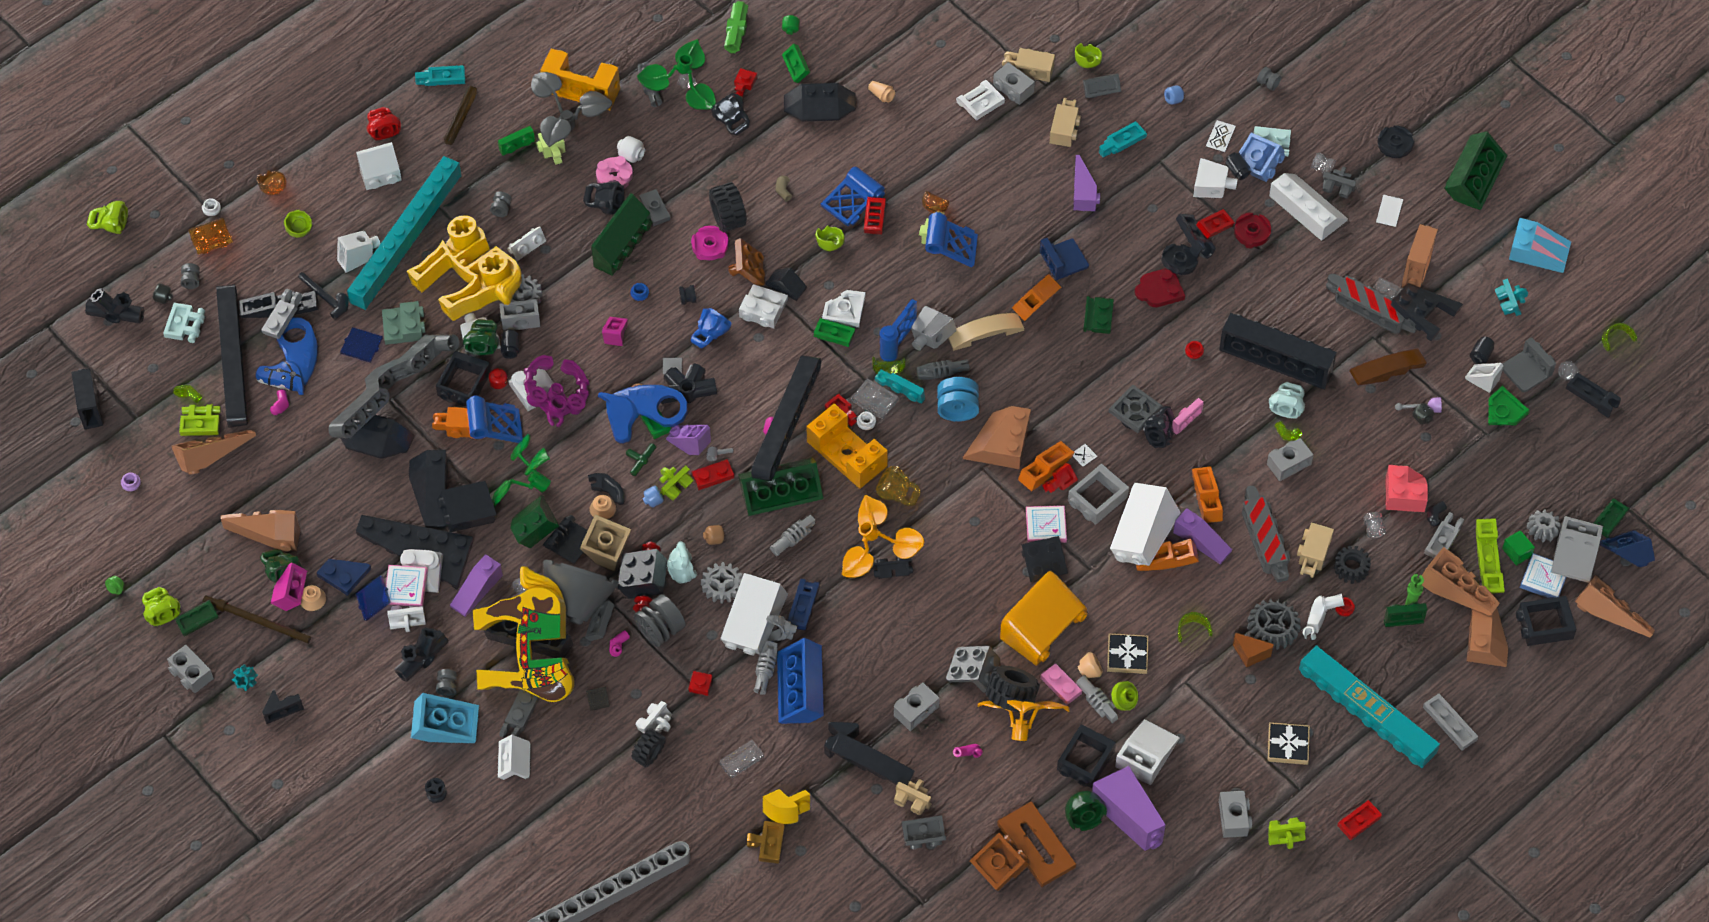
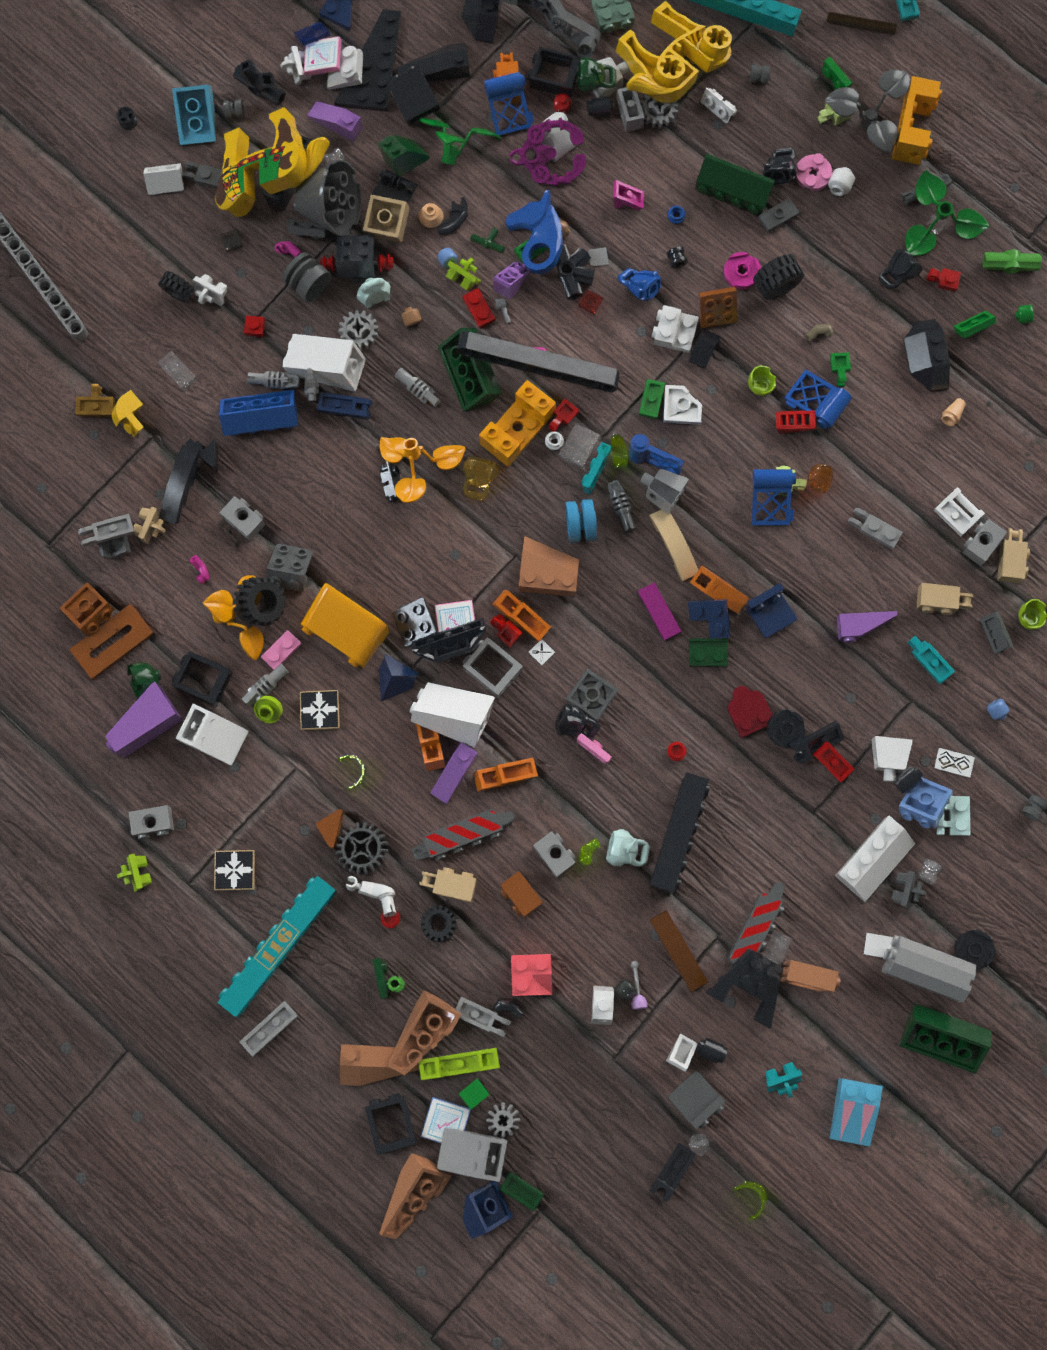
camera: 85 degrees right, 20 degrees up
(722, 375) = (590, 302): none -> clear red tile
(821, 173) = (841, 365): none -> green plate
(919, 825) = (107, 530): none -> light grey hinge
(989, 166) = (876, 528): none -> light grey hinge
(1053, 350) = (659, 611): none -> magenta tile
(1060, 301) = (715, 612): none -> dark blue plate
(1072, 519) = (450, 642): none -> black wedge
(1090, 666) = (298, 675): light nougat cone -> none
(1099, 582) = (395, 678): none -> dark blue slope
(1249, 238) = (845, 802): dark red plate -> none
(1328, 488) = (521, 894): none -> dark orange brick
(1359, 820) = (154, 942): red plate -> none
(1374, 525) = (485, 944): clear wheel -> none
(1414, 171) = (929, 968): none -> light grey brick
(1437, 431) = (602, 1005): none -> white torso
(1505, 408) = (642, 1077): green plate -> none

